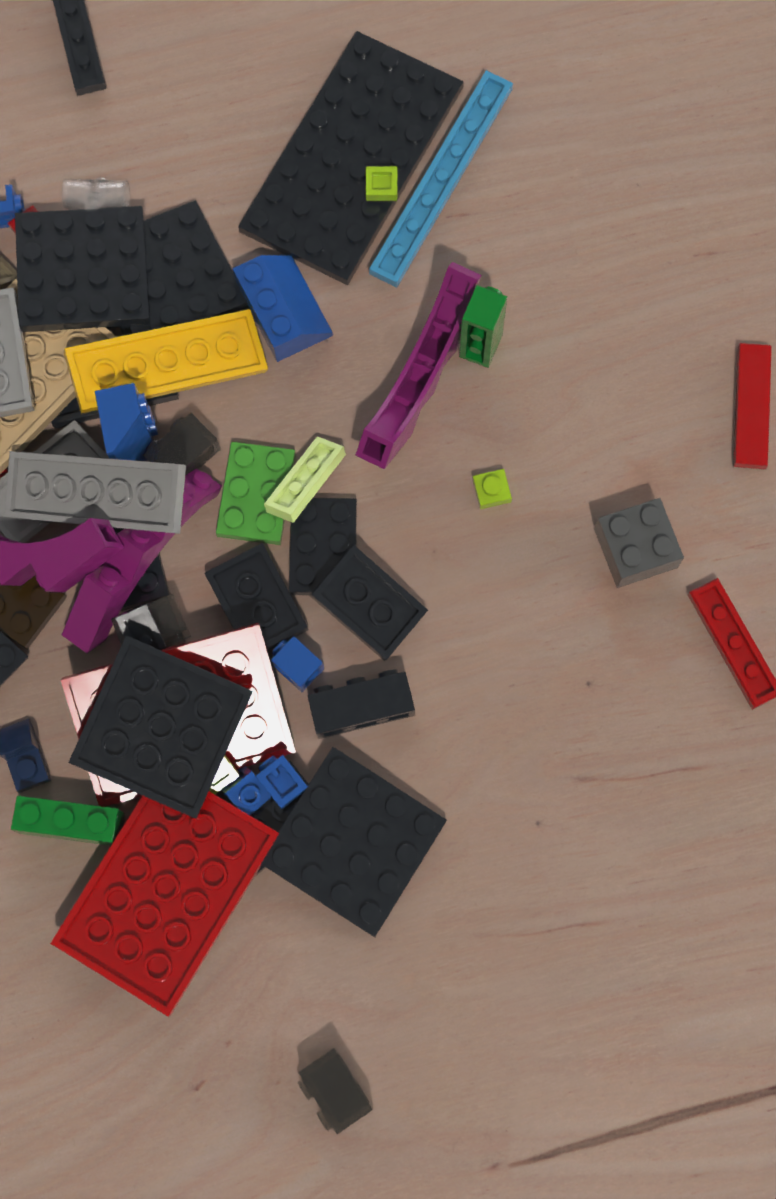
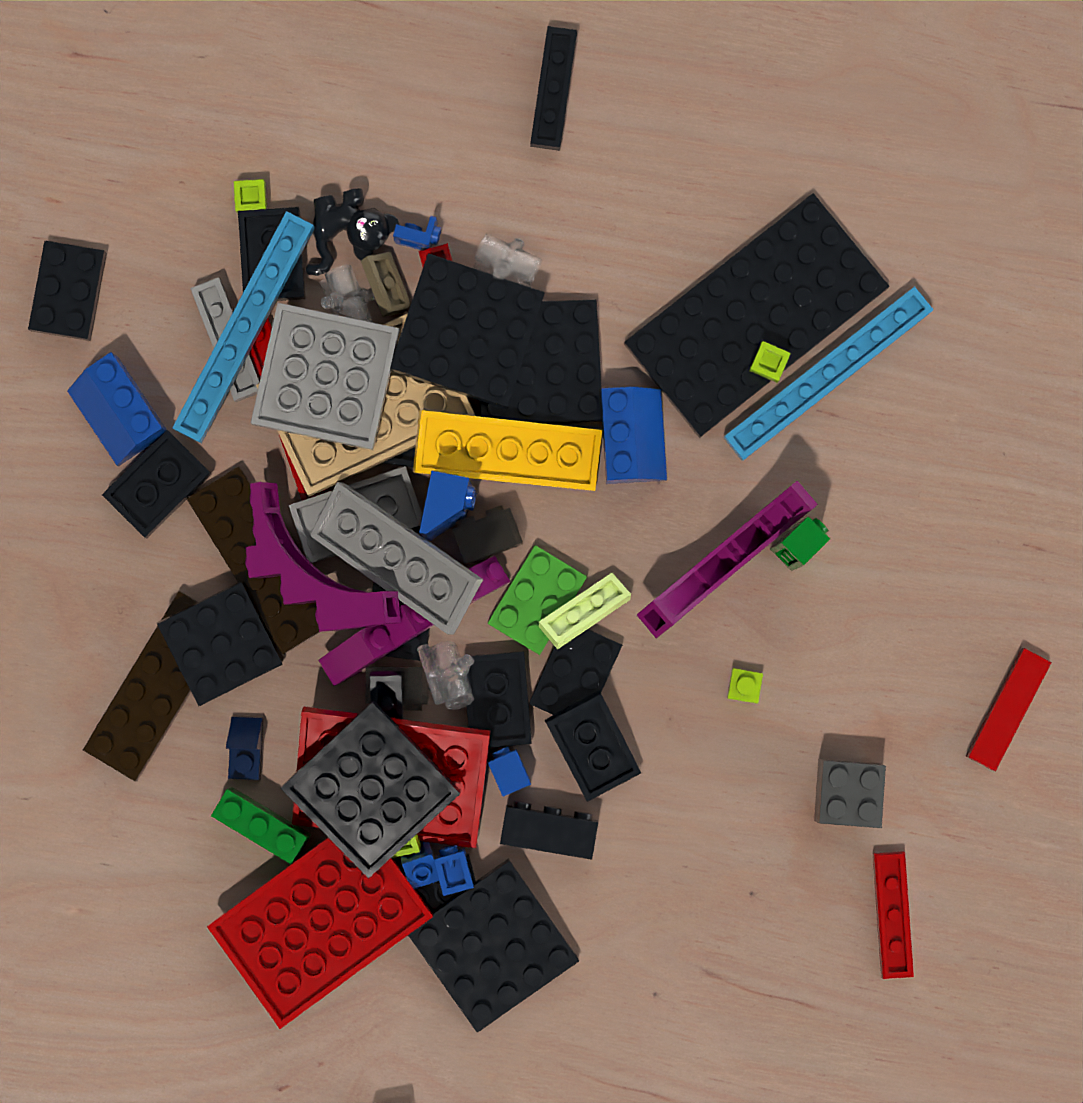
camera: 20 degrees right, 10 degrees up
(195, 592) = (447, 674): none -> clear pin

